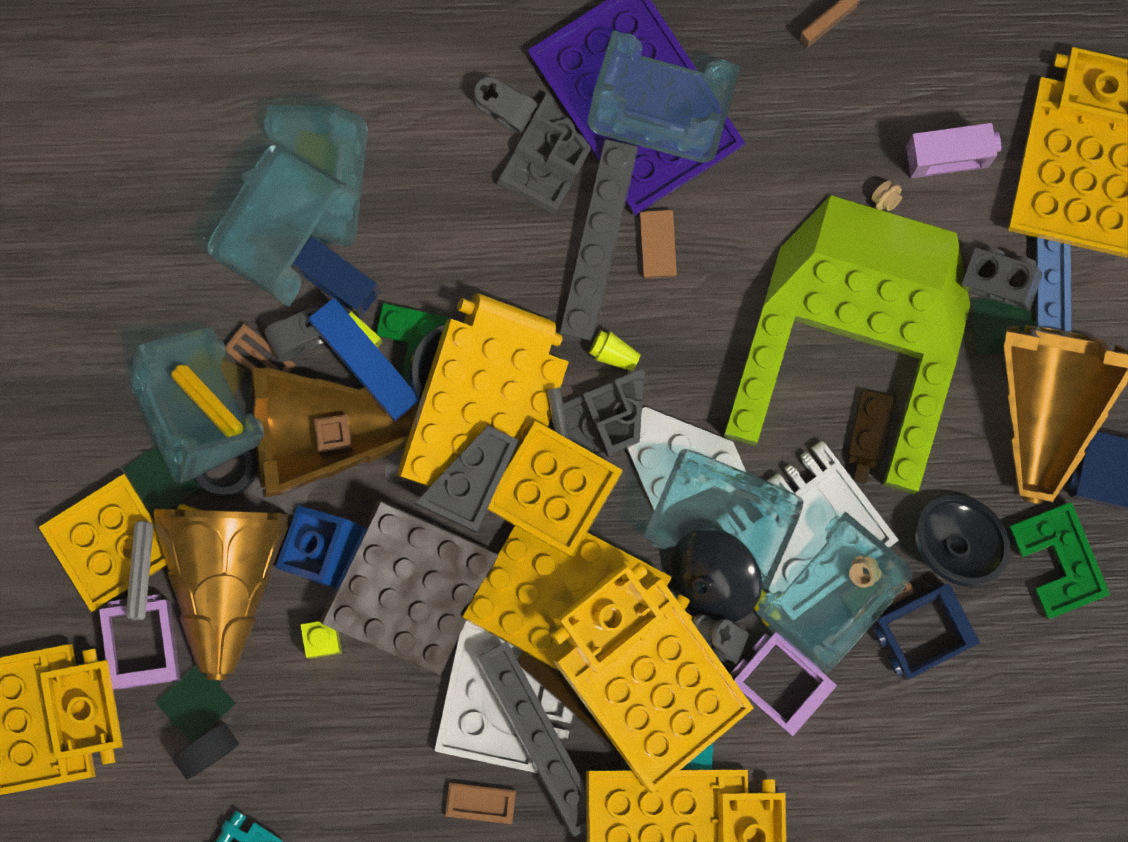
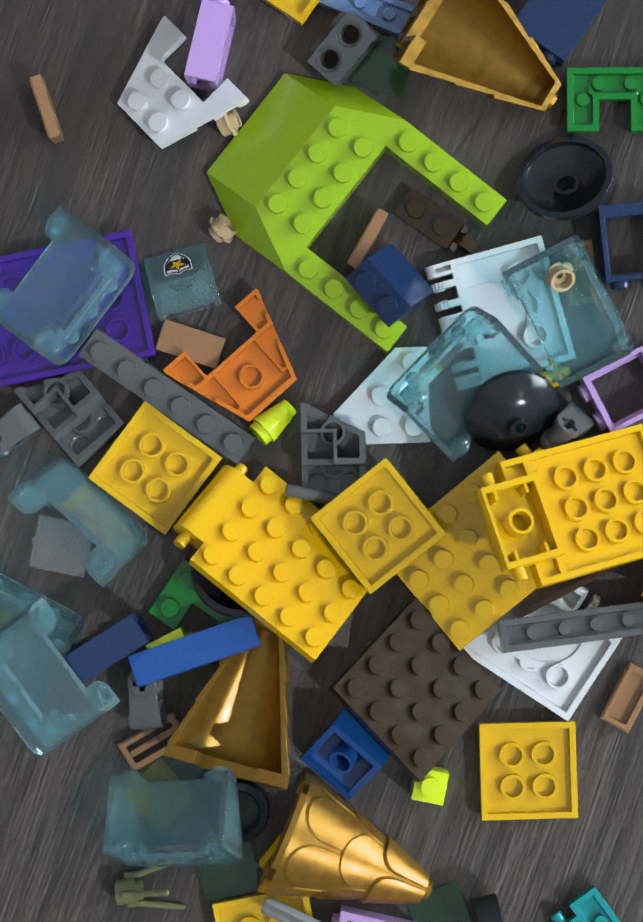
camera: 70 degrees left, 5 degrees up
(107, 392) = (132, 892): none -> olive plant
(206, 401) = (177, 806): yellow axle -> none
(333, 434) = (249, 703): medium nougat tile -> none
(371, 731) = (528, 770): none -> yellow plate
(414, 196) = (59, 547): none -> clear piece
(447, 240) = (91, 510): none -> clear light blue windscreen
(471, 480) = (343, 597): dark grey wing -> none
(525, 256) = (155, 467): none -> yellow plate
(650, 312) = (250, 375): none -> orange wing
(714, 212) = (182, 282): none -> clear light blue slope
(781, 230) = (221, 229): none -> tan plate
(790, 409) = (389, 284): none -> dark blue brick
(826, 373) = (367, 239): none -> medium nougat tile
(881, 127) = (163, 102): none -> white wing

